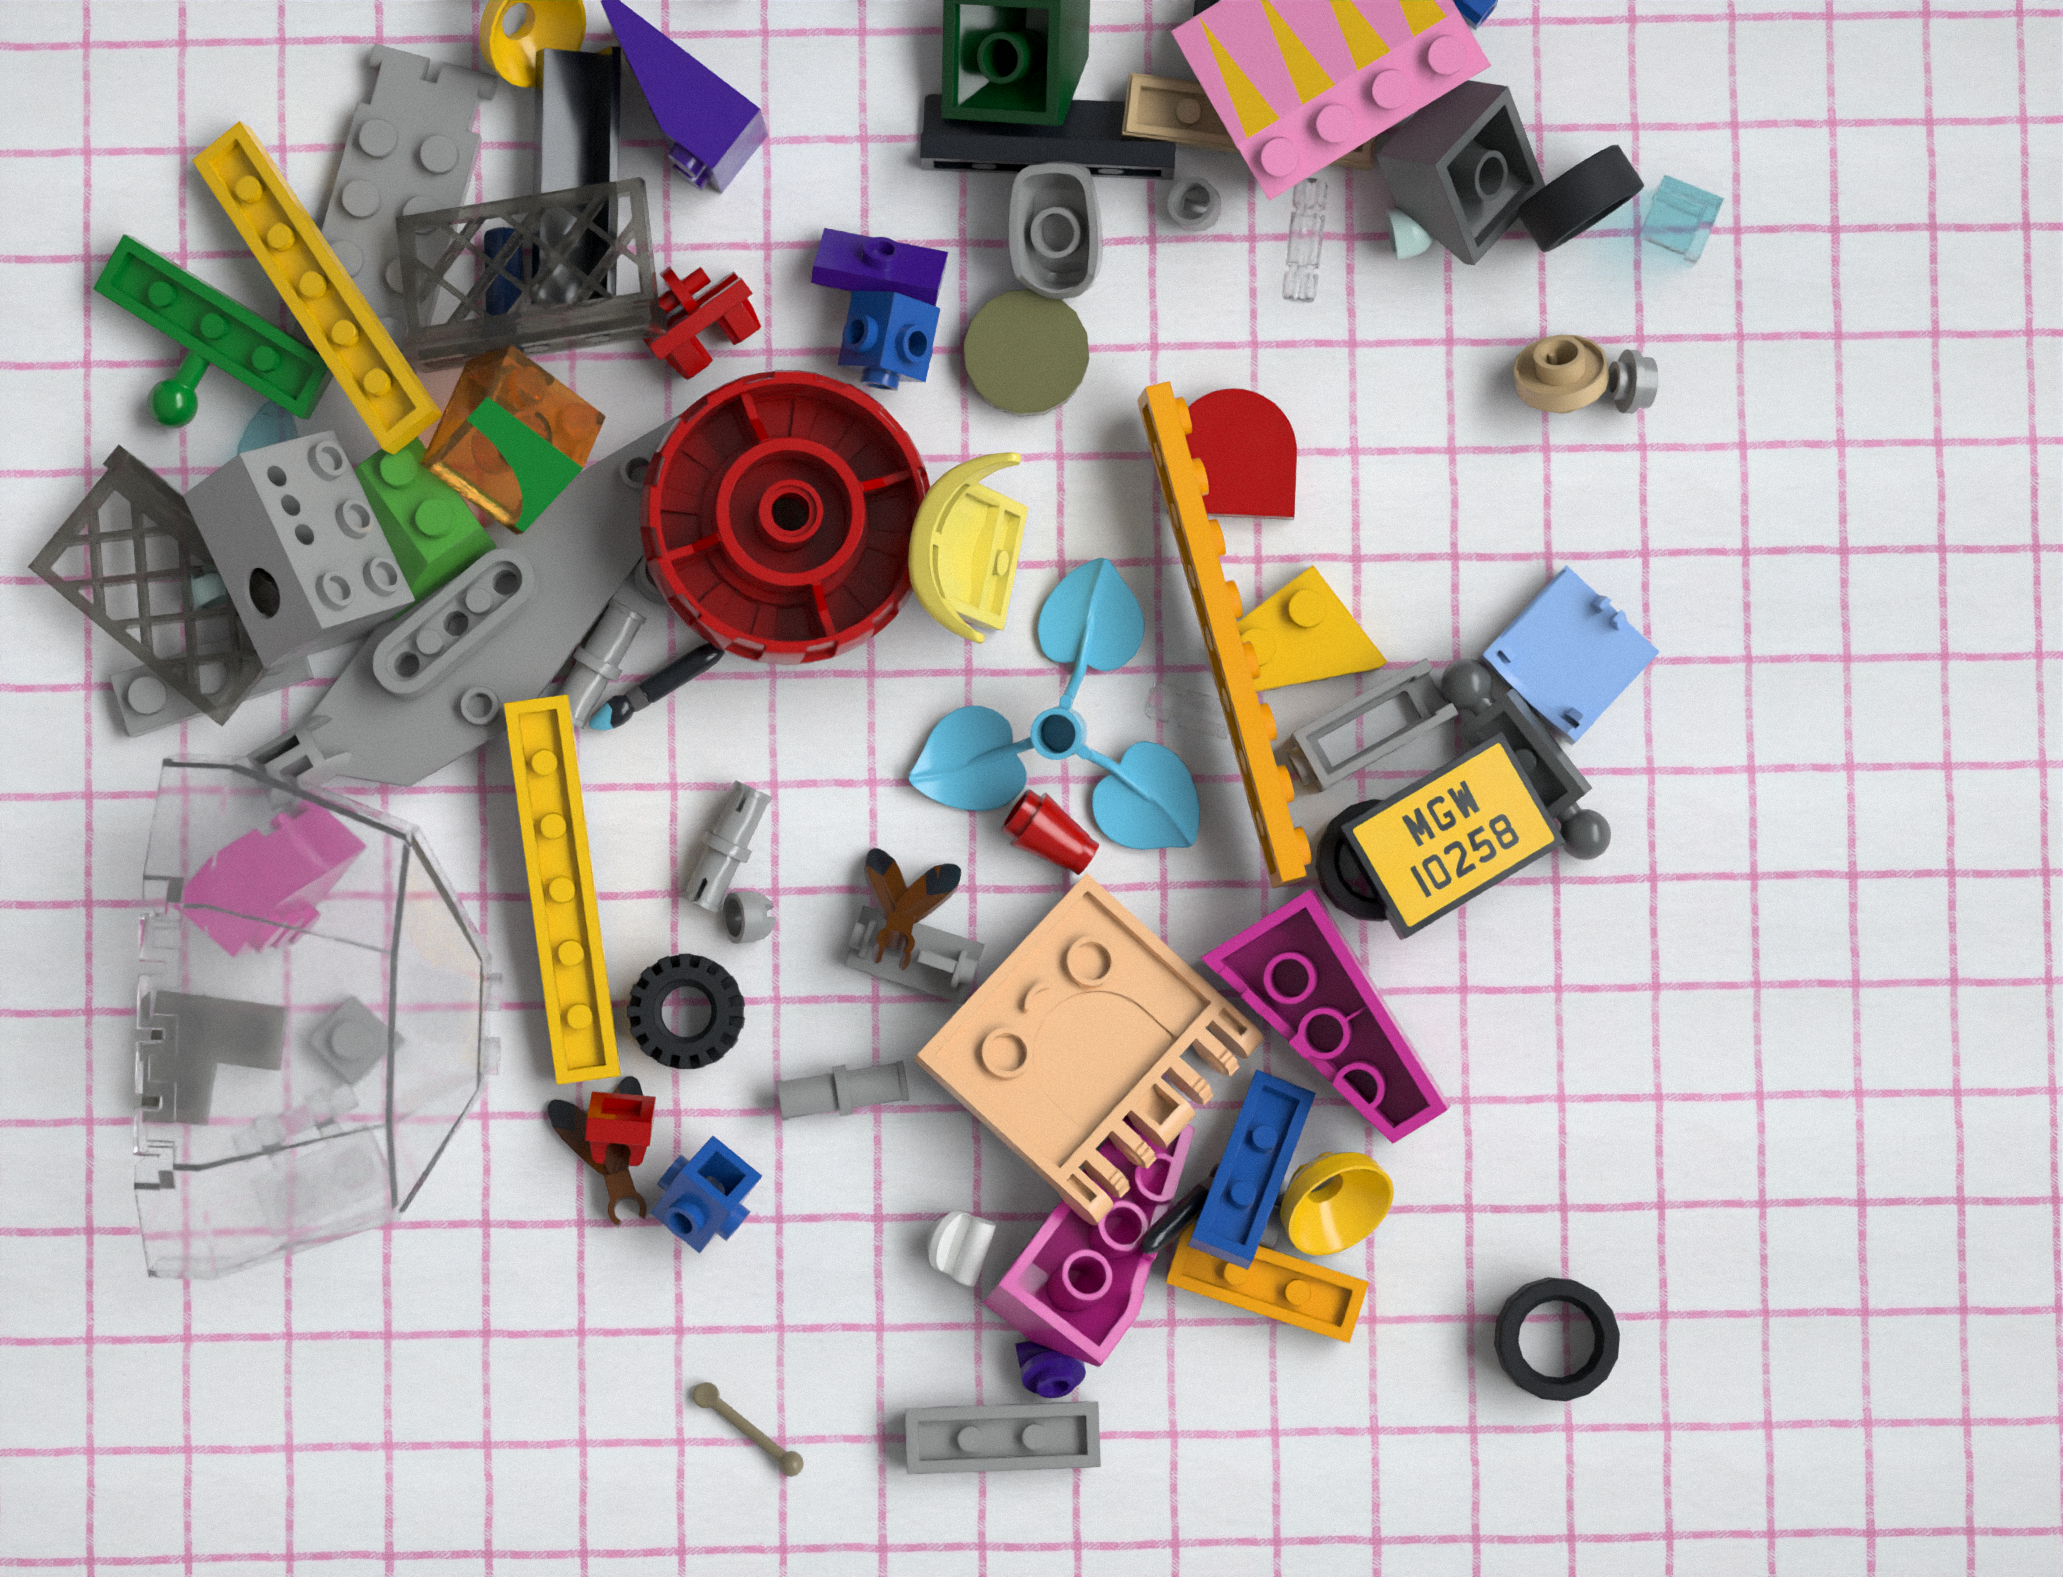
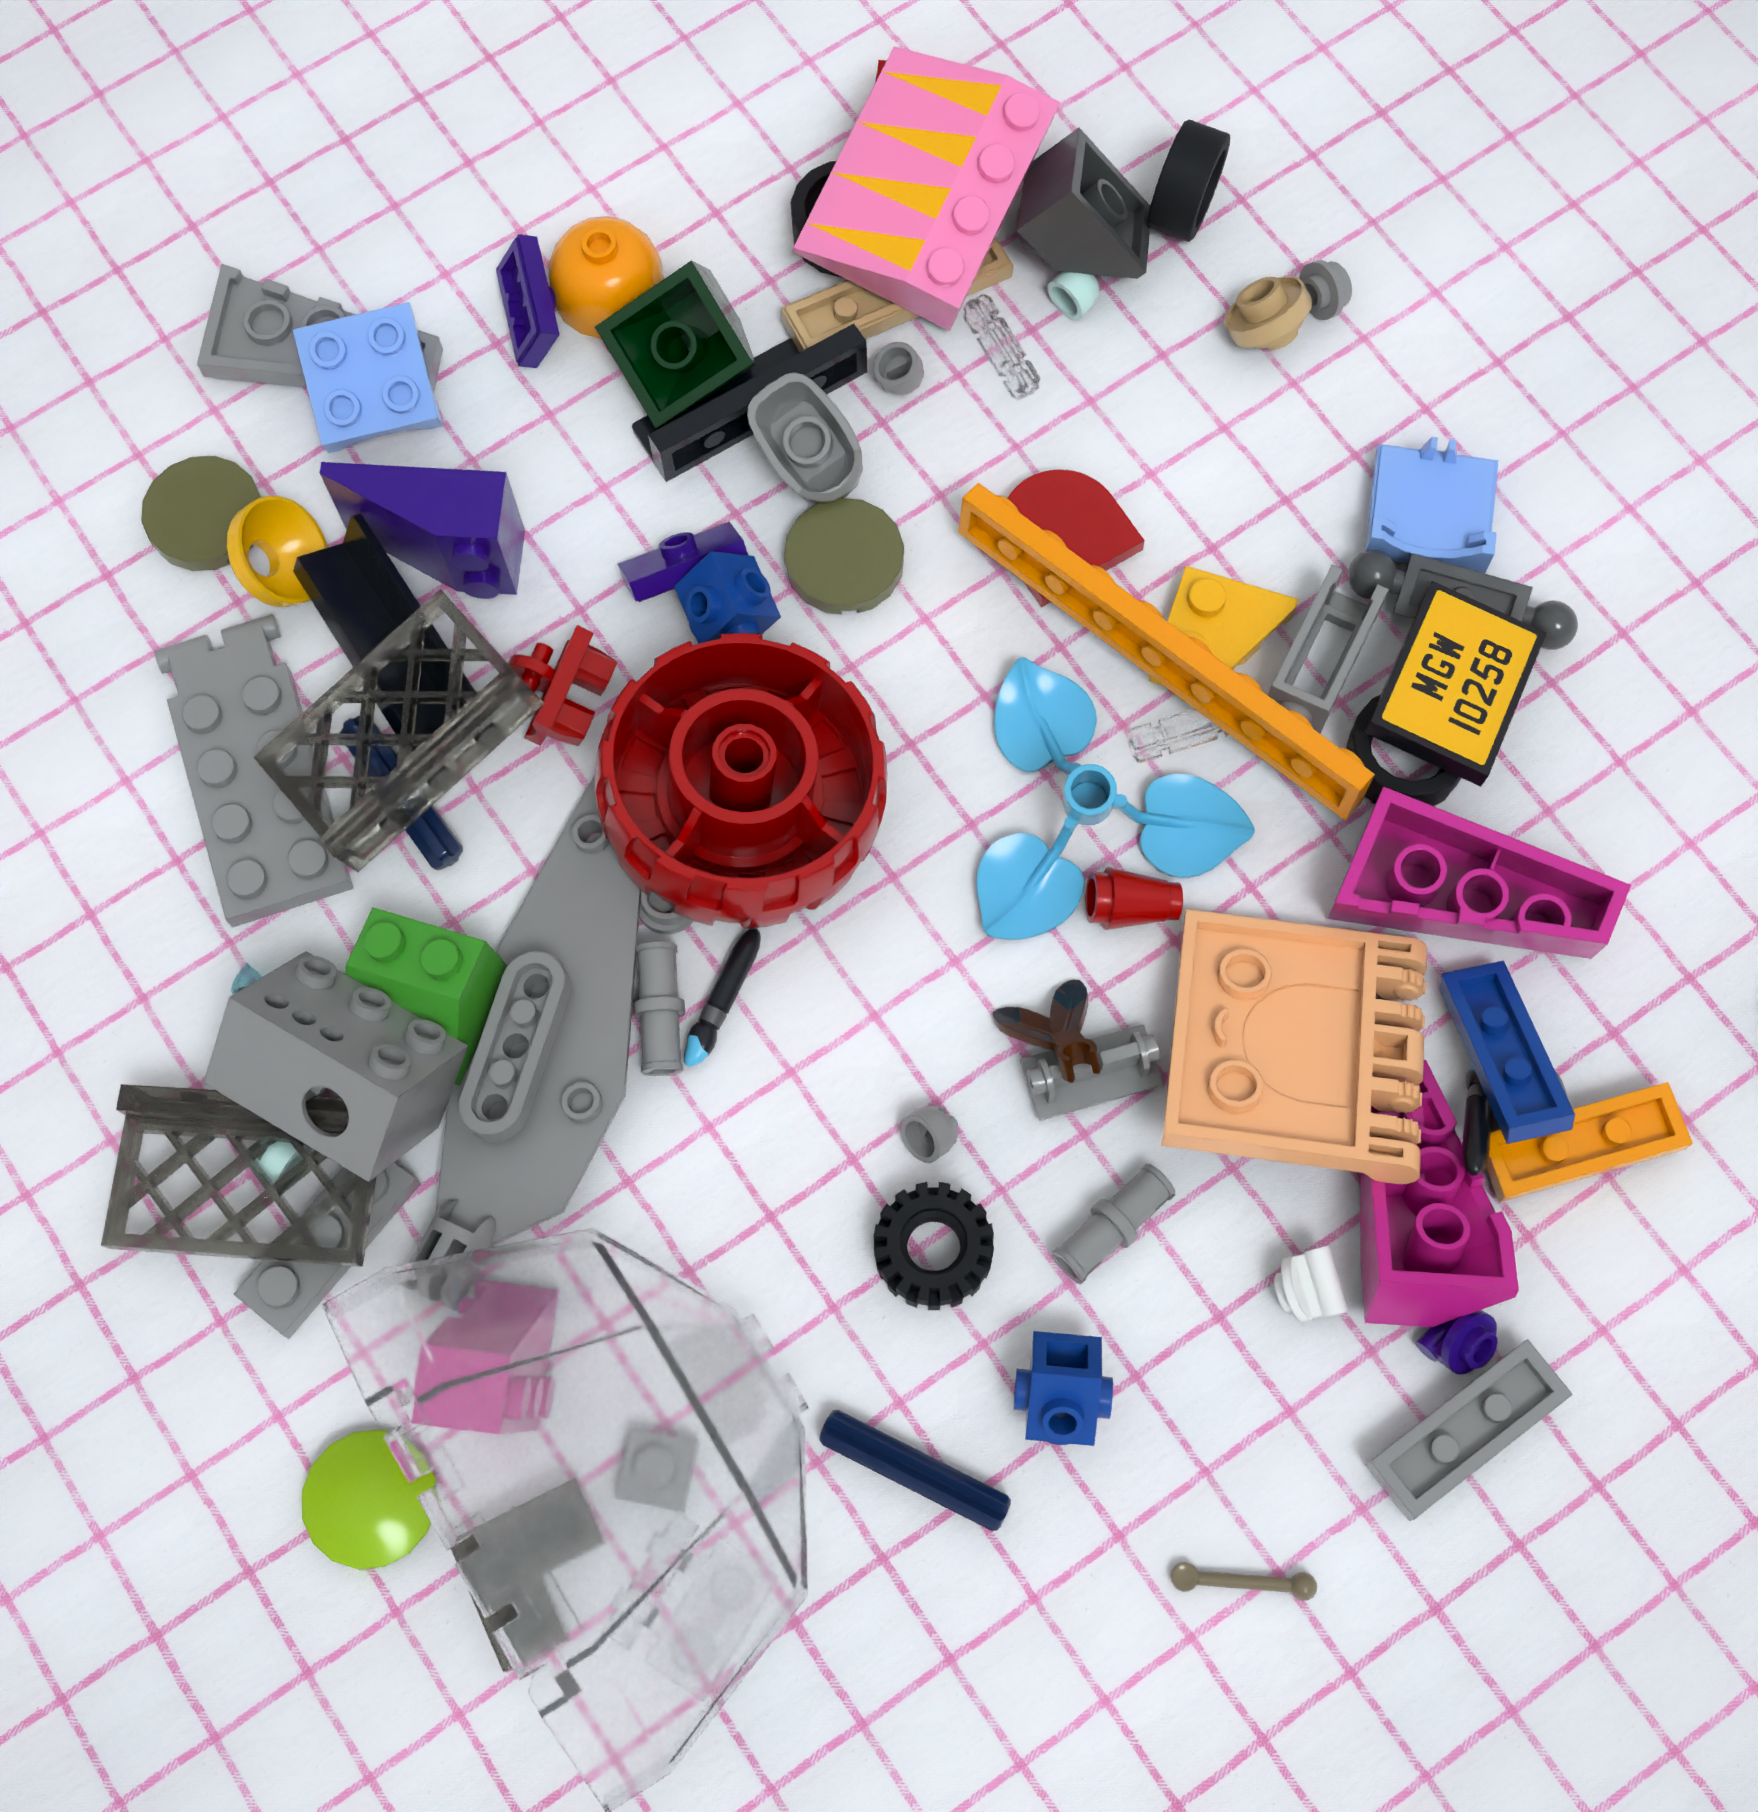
camera: 35 degrees left, 15 degrees down
(102, 912) = (362, 1503): none -> lime dish
(214, 332) = (149, 947): green plate -> none
(317, 288) = (223, 850): yellow plate -> none
(511, 437) = (465, 858): clear orange slope -> none
(553, 1175) = (915, 1470): none -> dark blue axle
(562, 889) = (757, 1210): yellow plate -> none
(571, 1127) = (949, 1417): reddish brown piece -> none
(620, 1120) = (943, 1374): red tile -> none
(726, 846) = (871, 1086): light grey pin -> none
(967, 548) = (903, 700): light yellow piece -> none
(1341, 1211) = (1590, 1032): yellow piece -> none
(1681, 218) = (1272, 151): clear light blue panel -> none

